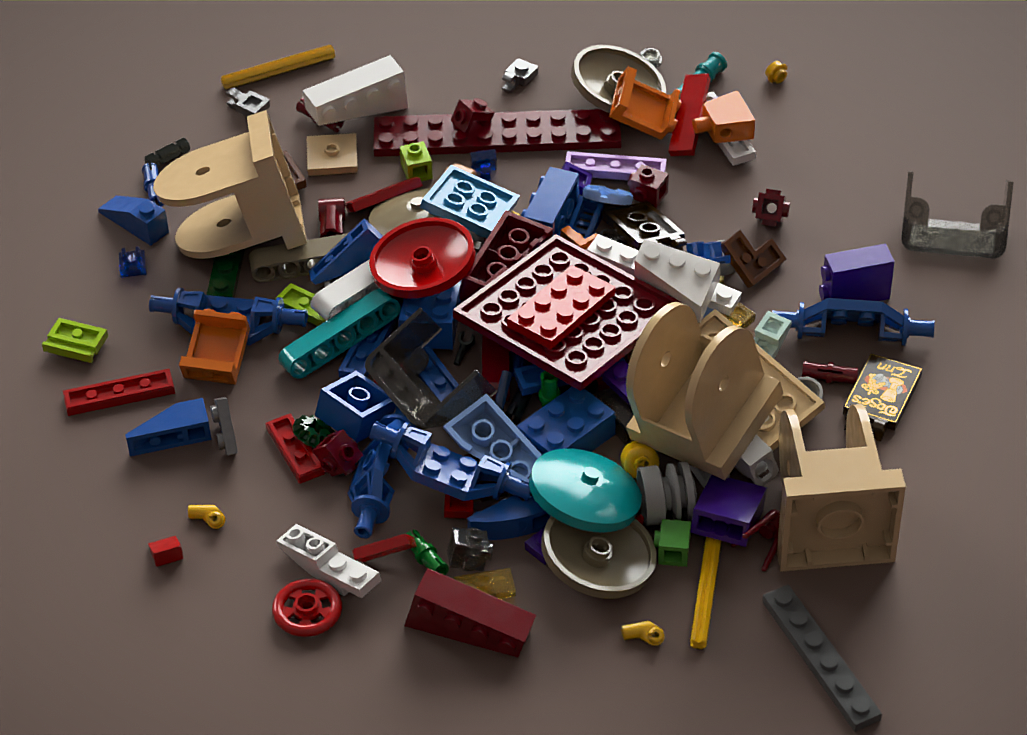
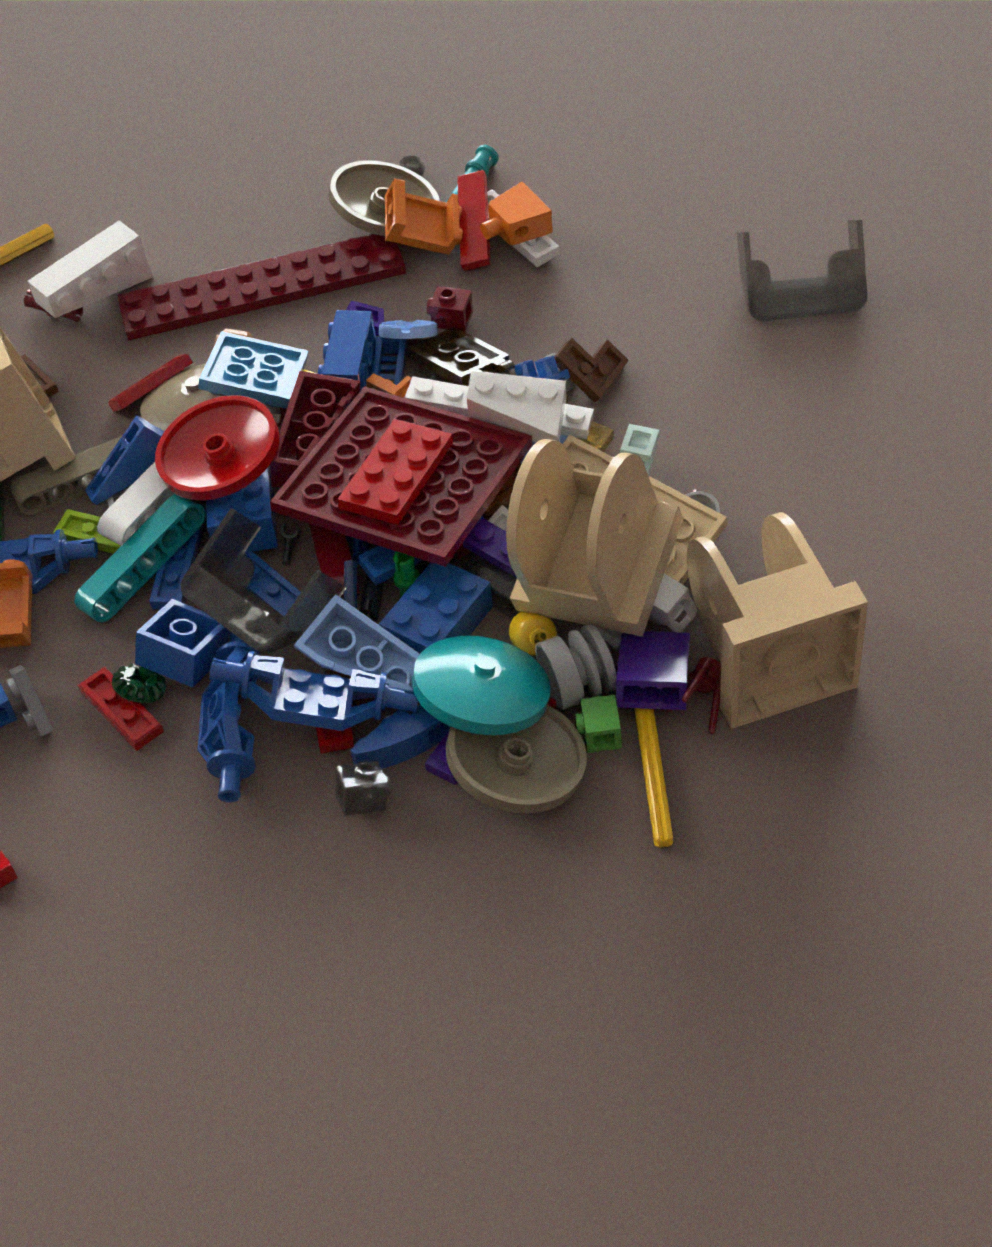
camera: 10 degrees left, 5 degrees up
(208, 513) = (35, 813): yellow arm -> none
(305, 627) = (163, 889): red plate -> none
(325, 563) = (194, 845): white slope -> none
(331, 216) = (96, 420): dark red piece -> none
(332, 154) = (78, 348): tan plate -> none
(338, 453) = (174, 704): dark red brick -> none
(384, 547) = (259, 810): red tile -> none
(416, 161) = (178, 336): lime brick -> none
(427, 554) = (311, 805): green pin -> none
(468, 615) = (384, 872): dark red wedge -> none
(469, 111) = (225, 266): dark red bracket -> none
(483, 162) = (256, 321): clear blue tile -> none
(494, 582) = (391, 829): clear yellow plate -> none
(519, 73) = (268, 213): flat silver plate -> none
(612, 166) = (403, 295): lavender plate -> none
(644, 630) = (596, 840): yellow arm -> none
(761, 203) = (591, 293): dark red brick -> none
(776, 72) = (555, 154): yellow plate -> none
(822, 658) = (813, 825): dark grey plate -> none
(830, 372) = (739, 479): dark red pin -> none
(858, 274) = (716, 363): dark purple brick -> none
(859, 311) = (737, 404): blue plate -> none
(884, 391) = (783, 484): tile -> none

